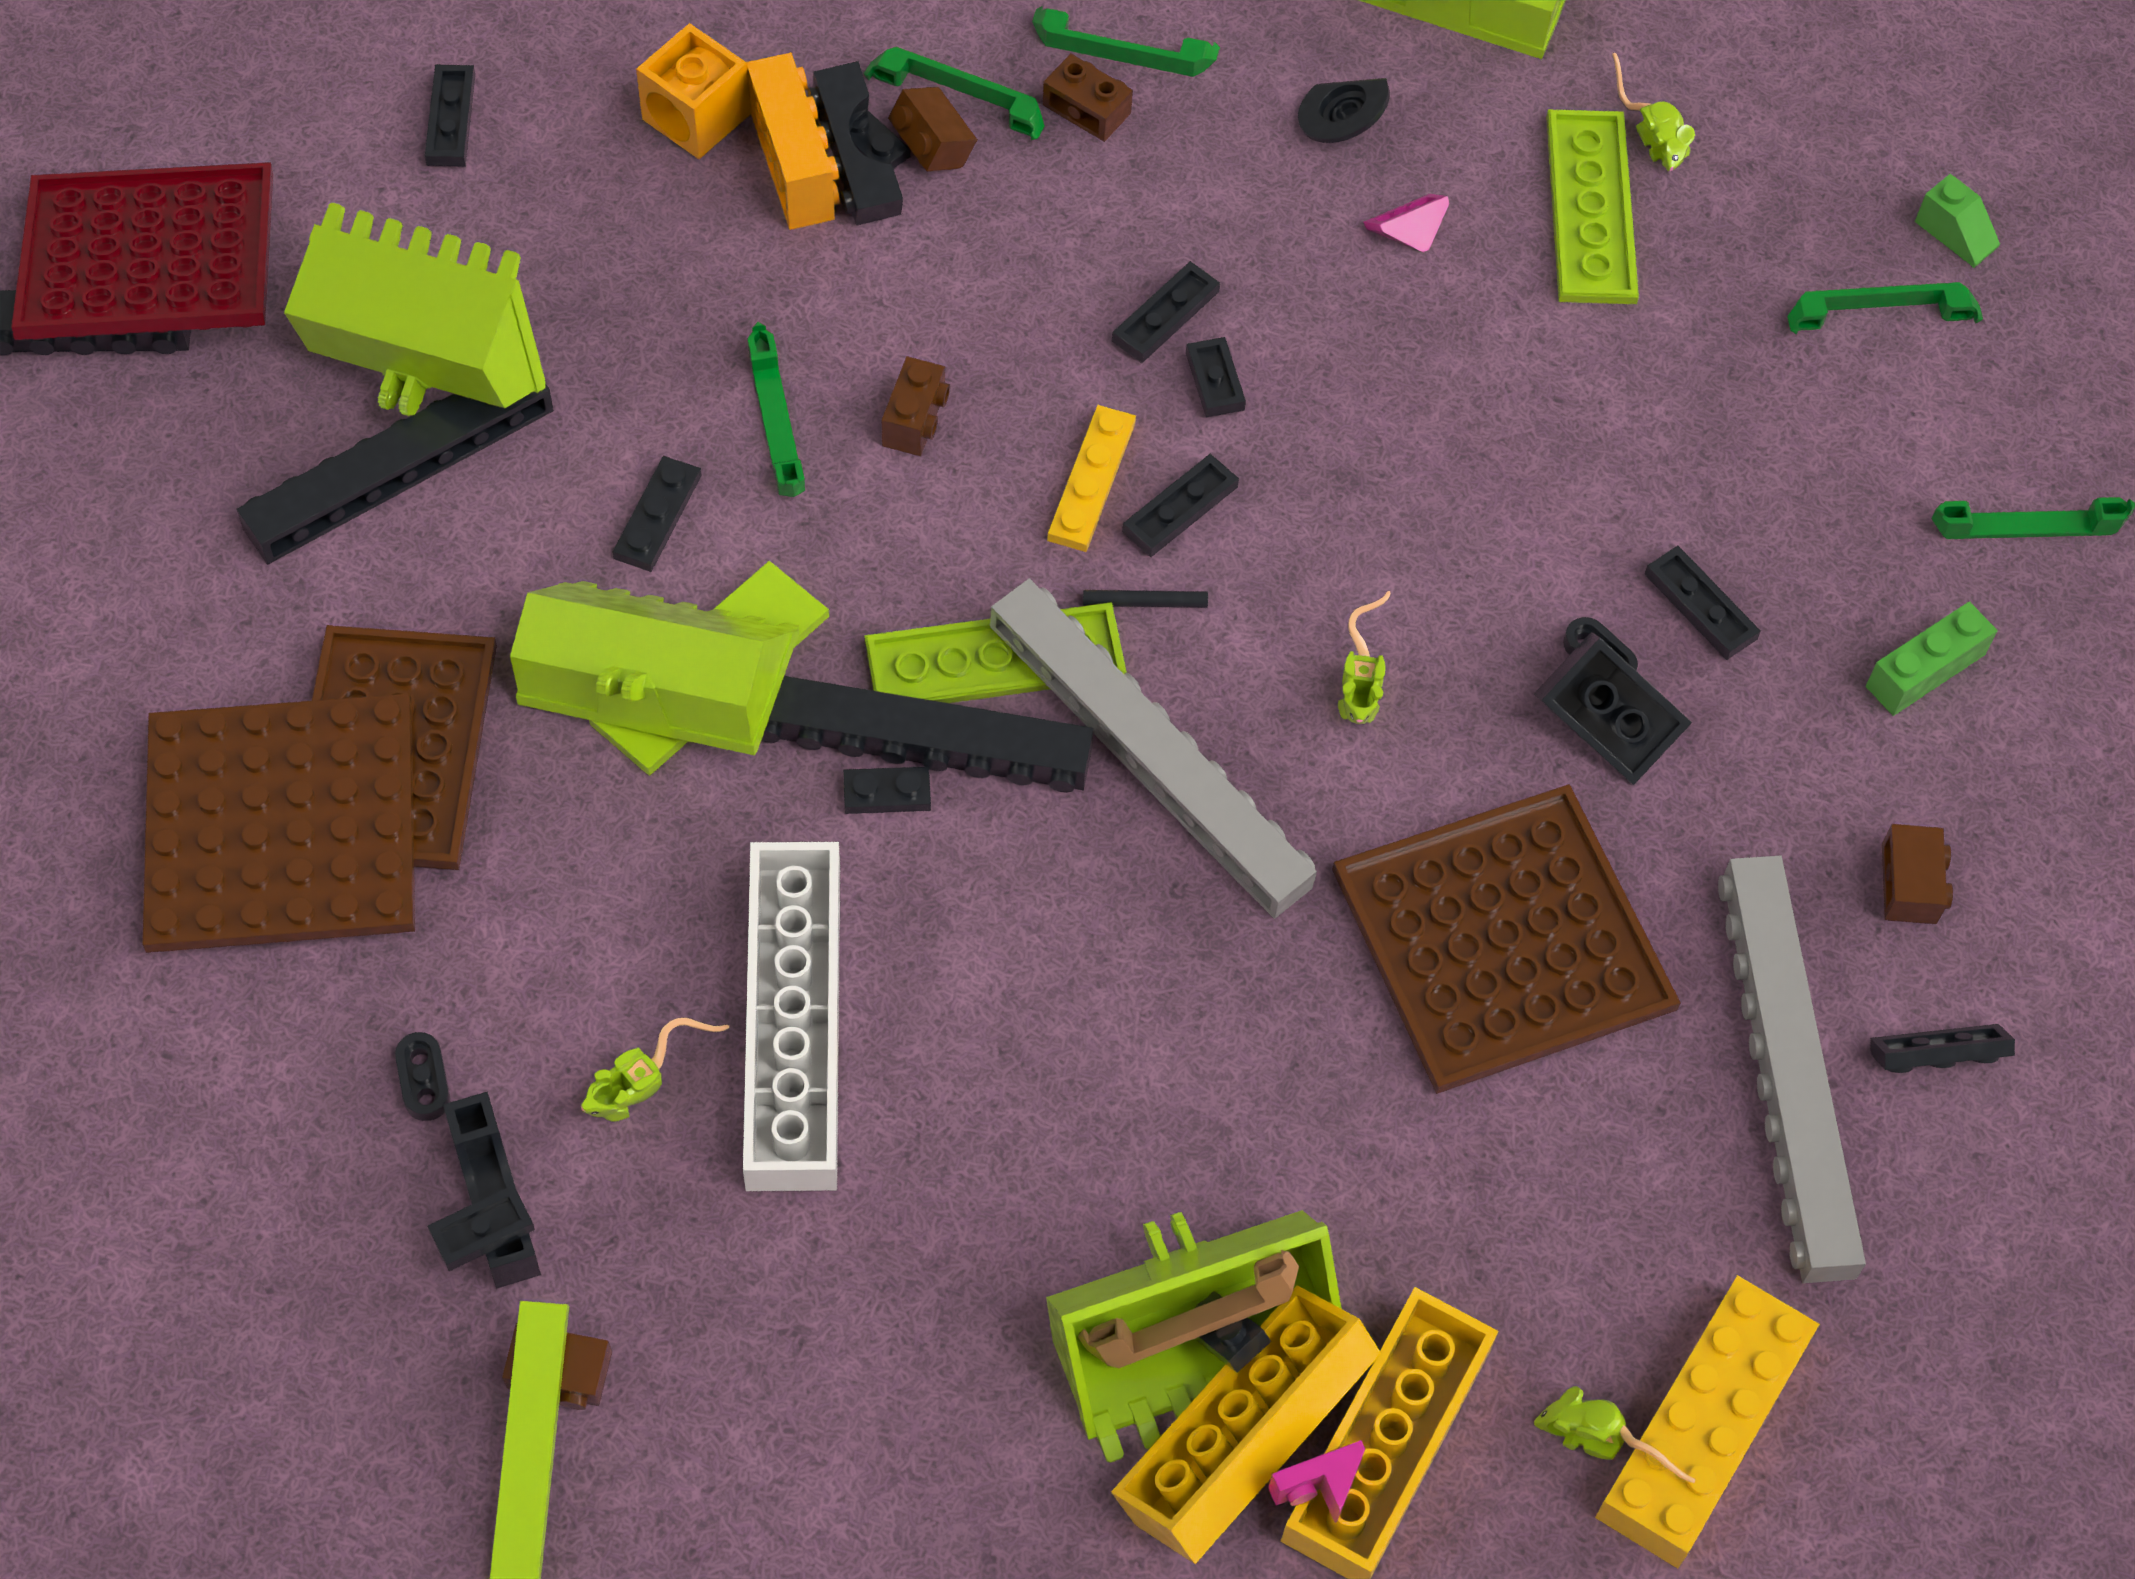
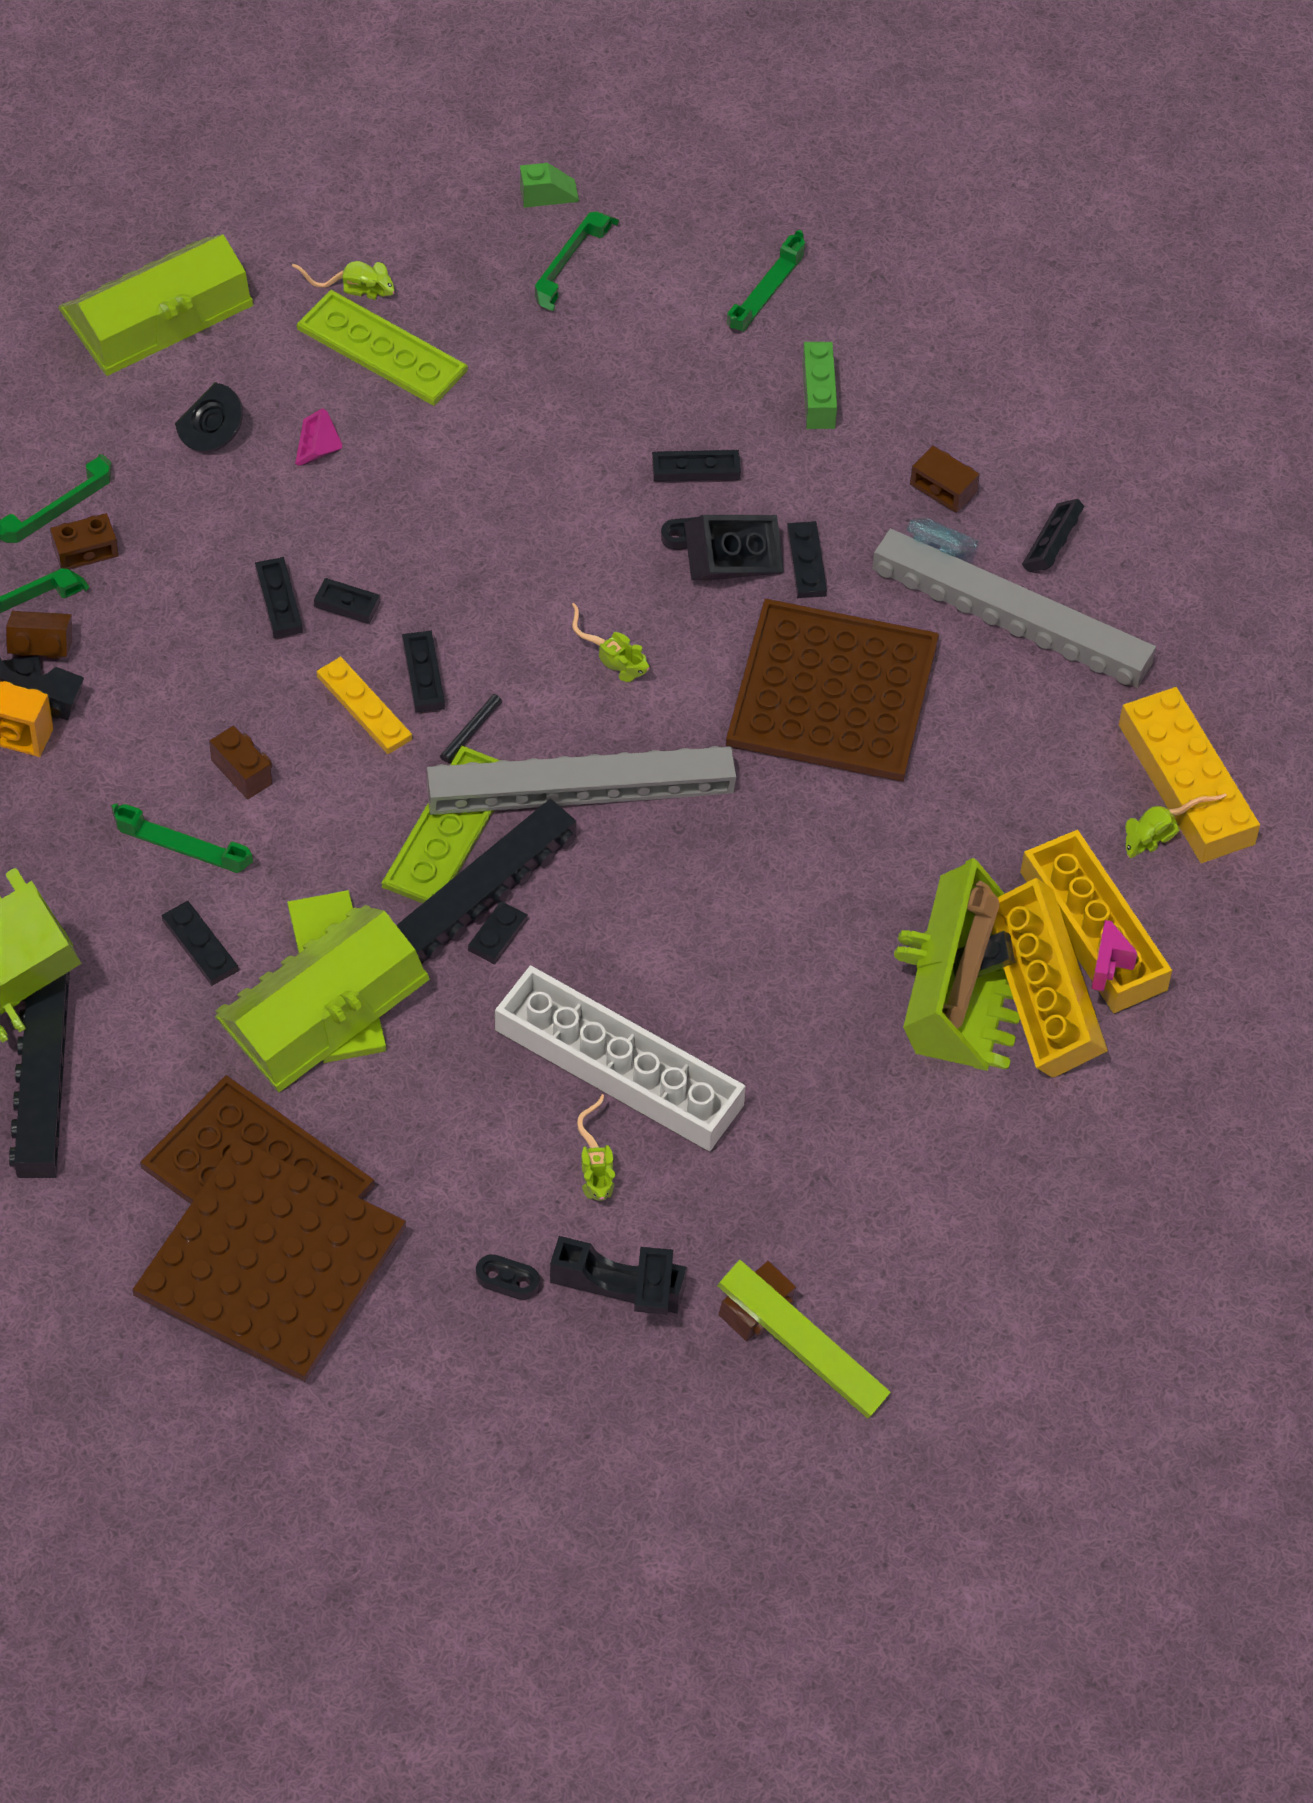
camera: 55 degrees left, 5 degrees down
(1671, 798) = (806, 559): none -> black plate
(1823, 920) = (951, 541): none -> clear light blue plate

